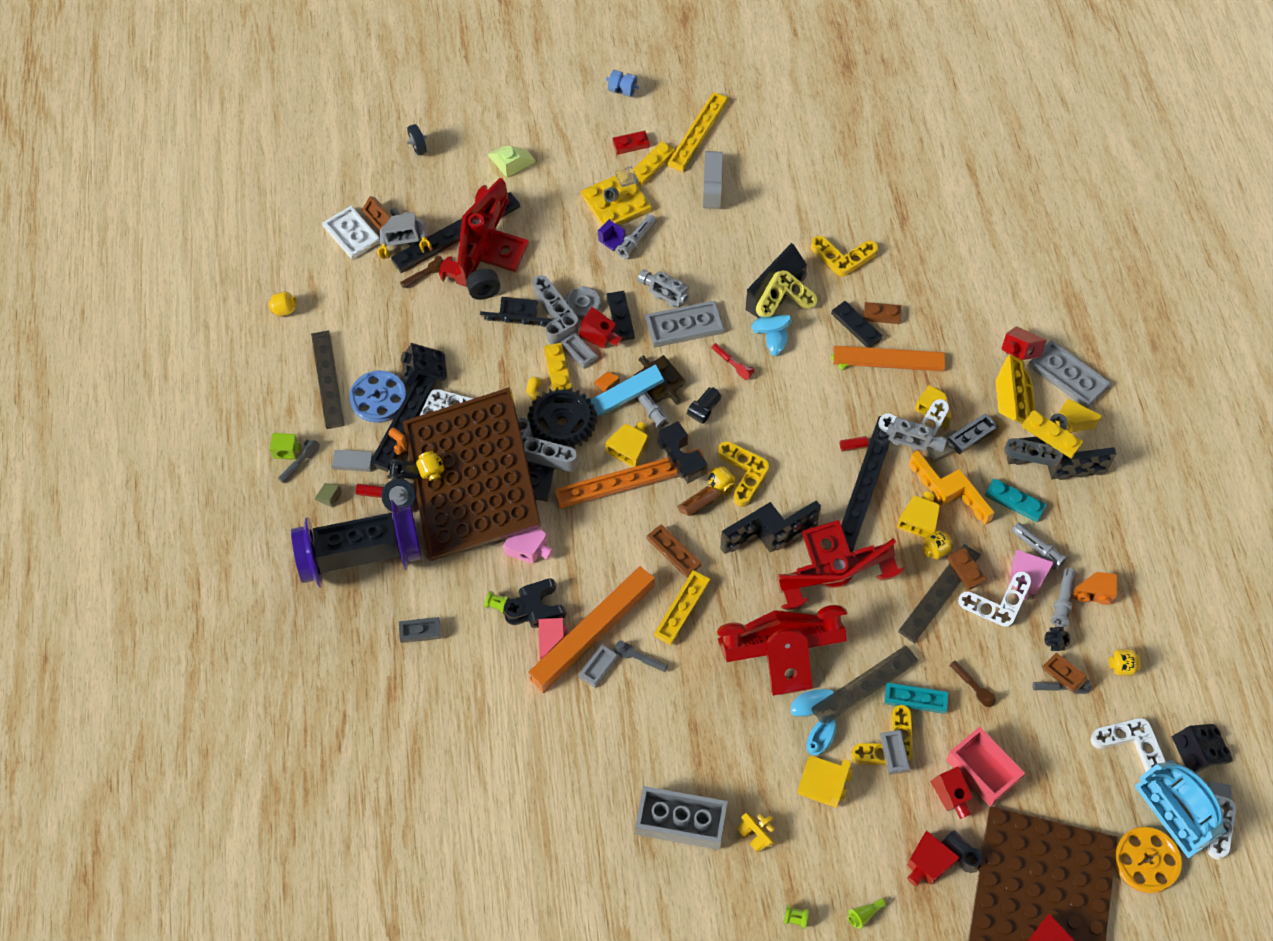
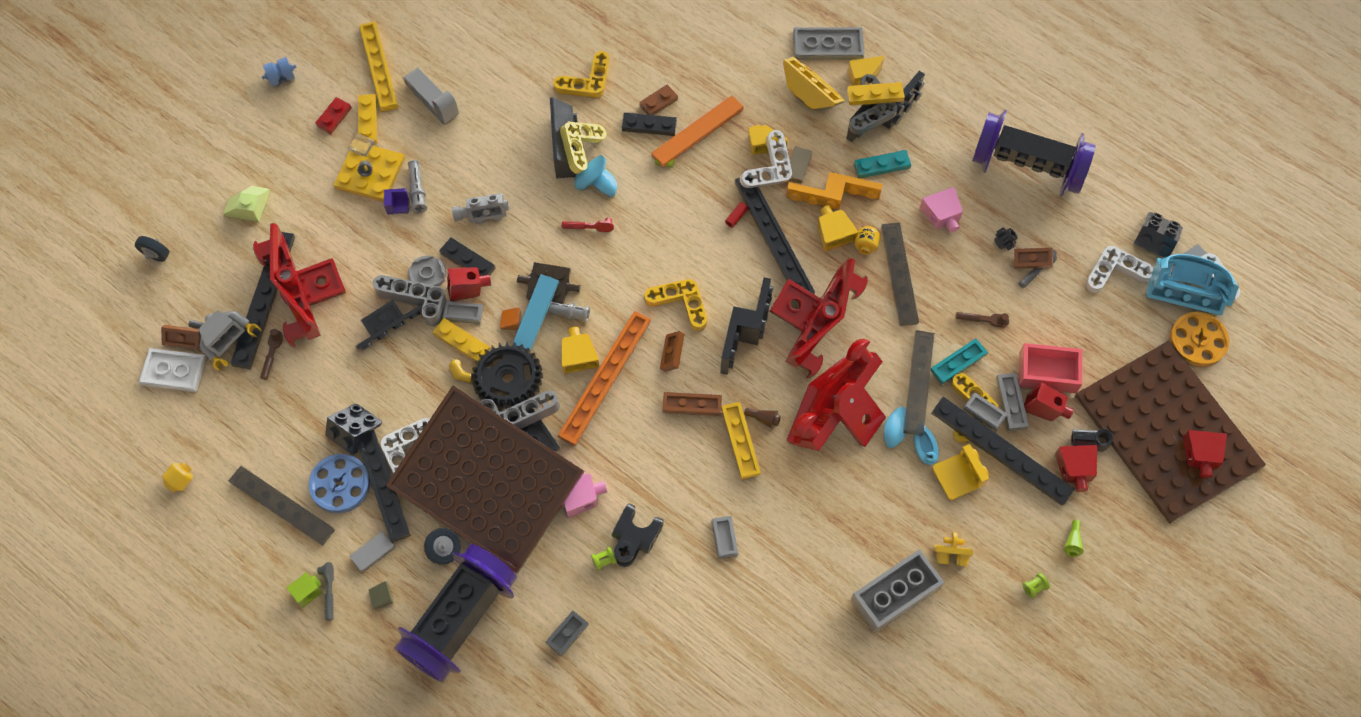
camera: 45 degrees left, 5 degrees up
(368, 490) = (413, 562): red axle -> none
(401, 446) = (398, 500): orange arm -> none
(402, 469) = (426, 523): black piece -> none
(430, 466) = (449, 500): yellow head -> none
(483, 284) = (334, 322): black tyre -> none
(550, 634) = (670, 548): coral slope -> none
(591, 629) = (694, 515): orange tile -> none
(627, 651) = (733, 507): dark grey piece -> none
(684, 324) = (522, 226): light grey tile -> none
(689, 465) = (641, 331): black arch -> none
(701, 409) = (603, 278): black piece -> none
(720, 610) = (767, 417): none -> reddish brown cone
(721, 479) = (672, 321): yellow head -> none
(878, 795) = (1003, 451): none -> black plate
(912, 433) = (780, 172): light grey brick -> none
(927, 765) = (1012, 401): none -> light grey plate
(966, 568) = (902, 240): dark orange plate -> none
(972, 433) = (811, 139): black plate -> none
(1004, 607) = (951, 244): white beam -> none
(1020, 343) = (782, 45): red torso -> none
(1046, 553) = (906, 183): light grey pin -> none
(1063, 604) = (985, 212): light grey pin -> none
(1098, 588) = (996, 180): orange slope -> none
(1124, 662) = (1061, 217): yellow head -> none
(1171, 622) = (1035, 152): none -> brick

